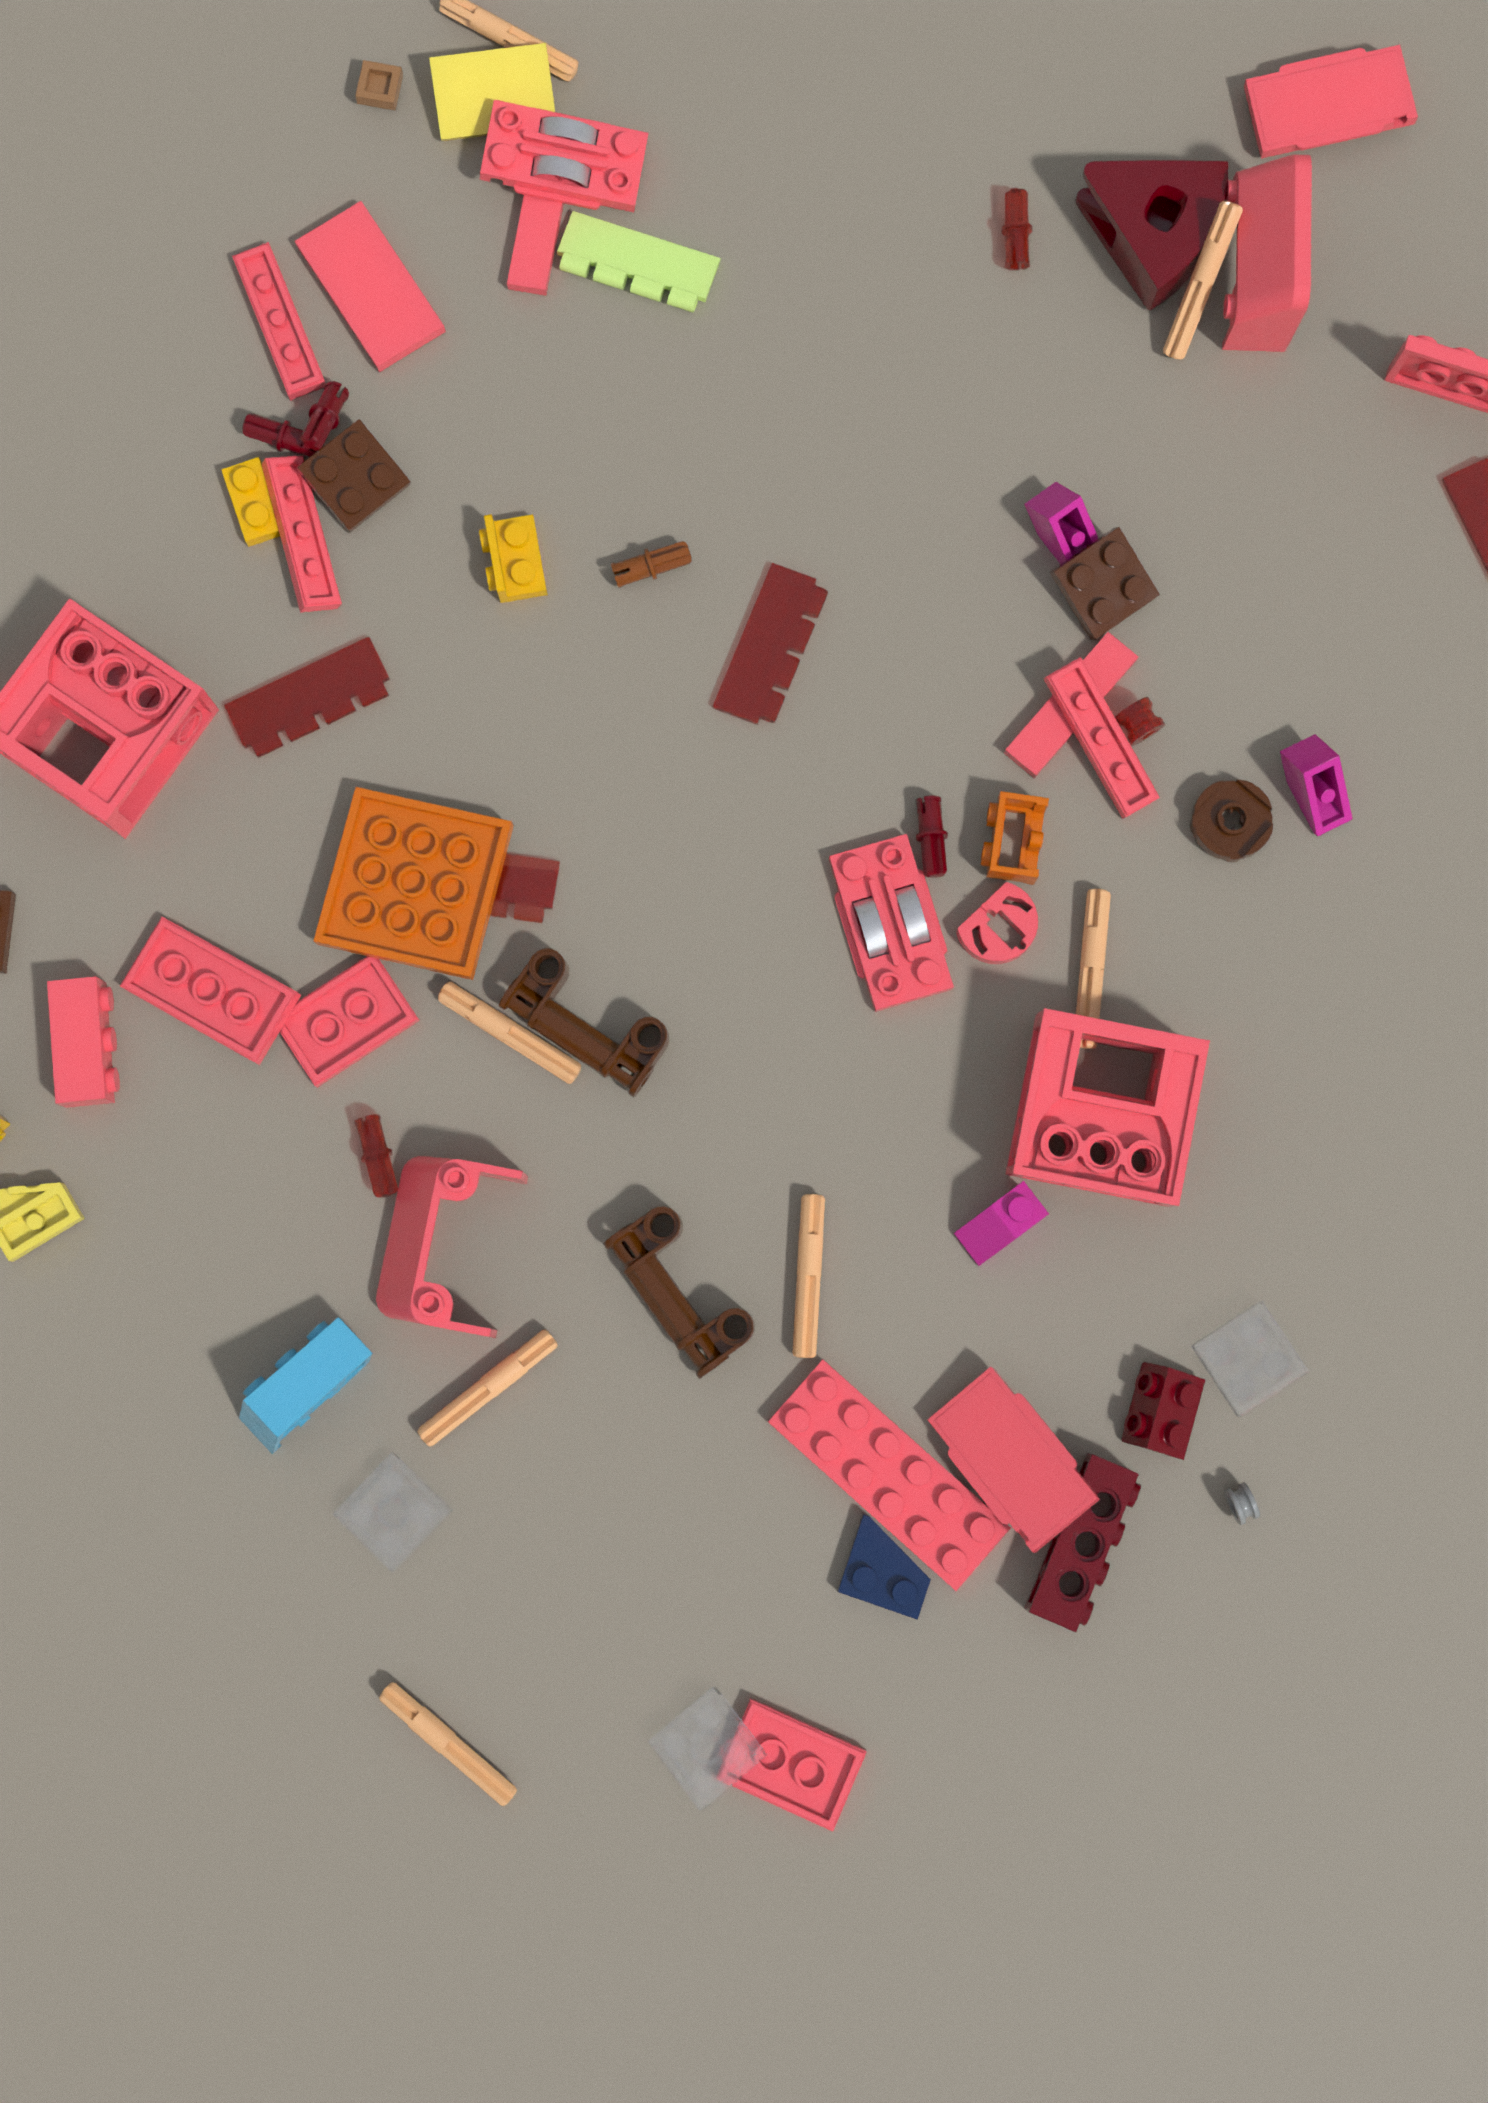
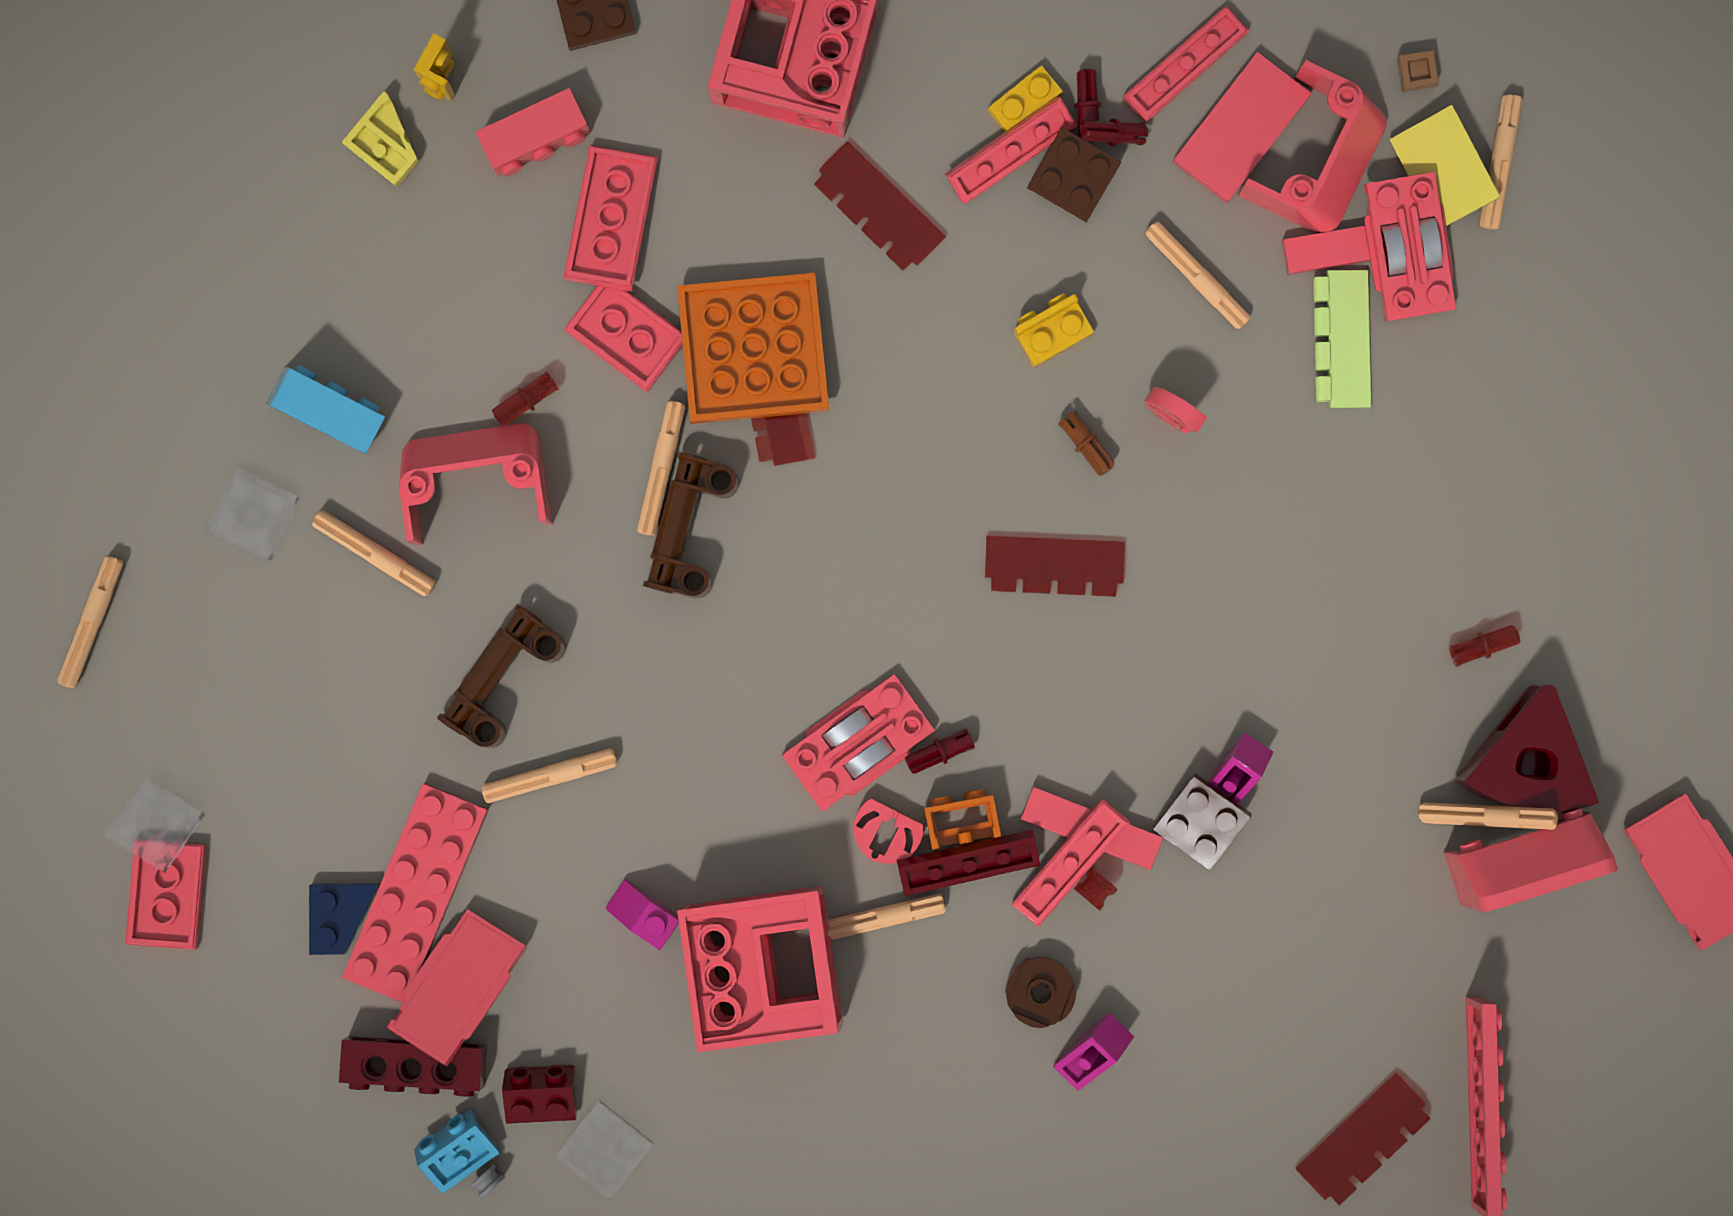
camera: 70 degrees right, 5 degrees up
(479, 230) = (1323, 202): none -> coral windscreen
(512, 386) = (1197, 275): none -> light nougat axle
(650, 454) = (1174, 410): none -> coral piece
(1064, 847) = (968, 862): none -> dark red plate
(1195, 1528) = (455, 1151): none -> medium azure bracket

